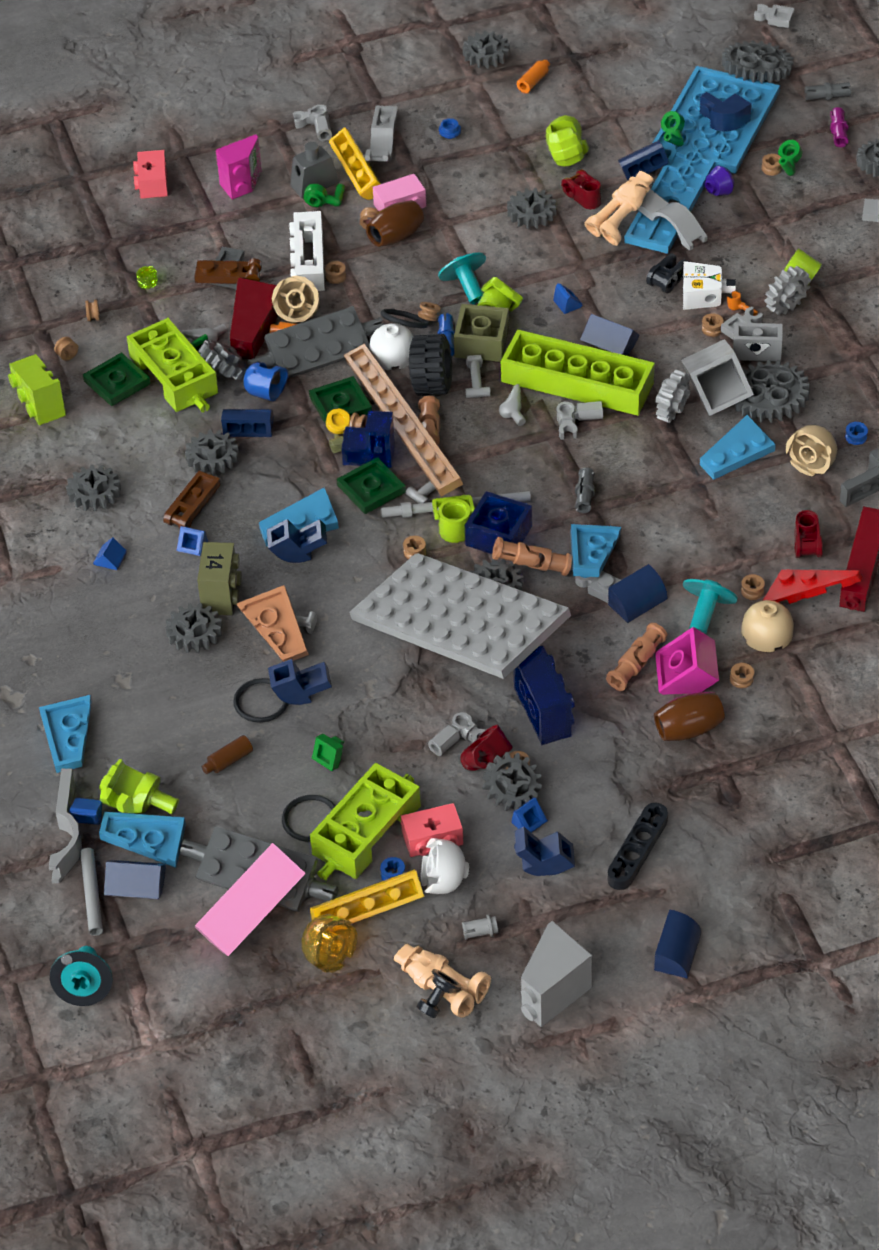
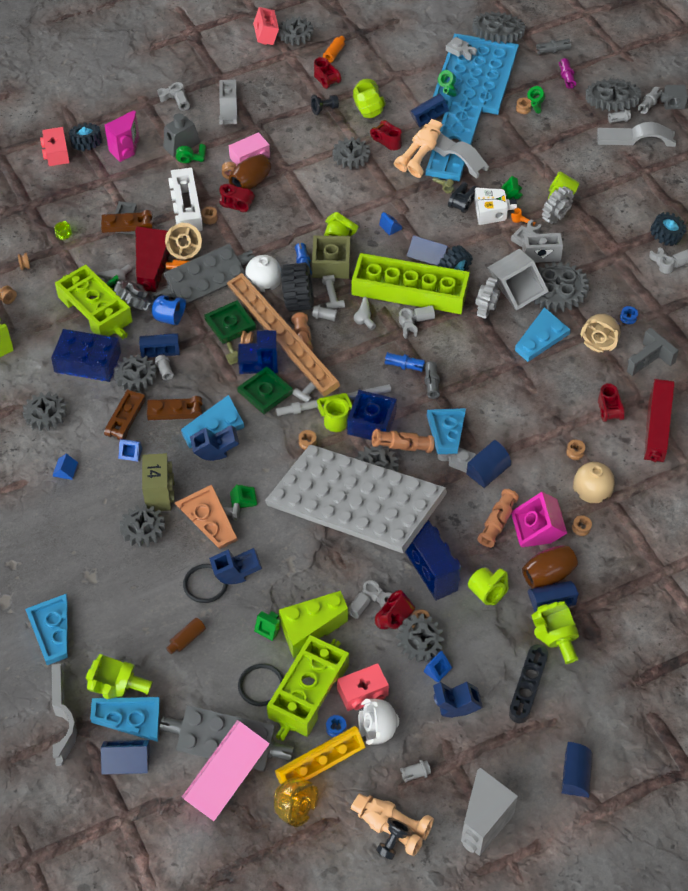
camera: 10 degrees left, 5 degrees up
(81, 977) = (93, 856): piece -> none
(87, 811) = (77, 698): blue slope -> none
(91, 891) = (90, 772): light grey piece -> none
(116, 379) = (50, 317): dark green plate -> none
(154, 426) = (86, 355): none -> clear blue brick
(191, 164) = (85, 136): none -> black wheel
(247, 443) = (162, 364): none -> light grey pin
(254, 498) = (174, 408): none -> reddish brown plate
(324, 605) = (244, 496): none -> green slope
(337, 421) = (231, 338): yellow tile -> none
(354, 163) = (211, 127): yellow brick -> none
(373, 254) = (236, 198): none -> dark red piece
(389, 745) = (312, 618): none -> lime wedge
(423, 323) = (260, 244): black tyre -> none
(429, 311) = (287, 242): medium nougat bush -> none
(447, 41) = (266, 26): none -> coral brick
(449, 128) = (278, 94): blue plate -> none
(462, 400) = (324, 313): none -> light grey pin
(463, 269) = (308, 206): teal piece -> none
(498, 143) = (318, 104): none -> black piece
(516, 105) = (326, 72): none -> dark red piece
(554, 466) = (404, 362): none -> blue pin
(608, 732) = (489, 586): none -> lime piece
(642, 345) = (457, 259): none -> black wheel
(650, 257) = (447, 185): none -> olive hand
(682, 785) = (556, 628): none -> lime piece
(688, 752) = (557, 592): none -> dark blue brick
(698, 83) = (459, 47): none -> light grey plate
(708, 593) = (546, 461): teal piece -> none
(712, 319) = (503, 240): medium nougat bush -> none
(720, 181) = (489, 122): dark purple cone -> none
(725, 114) = (484, 70): dark blue brick -> none
(734, 267) = (512, 188): none -> green tile
(808, 583) = (615, 445): red wing -> none

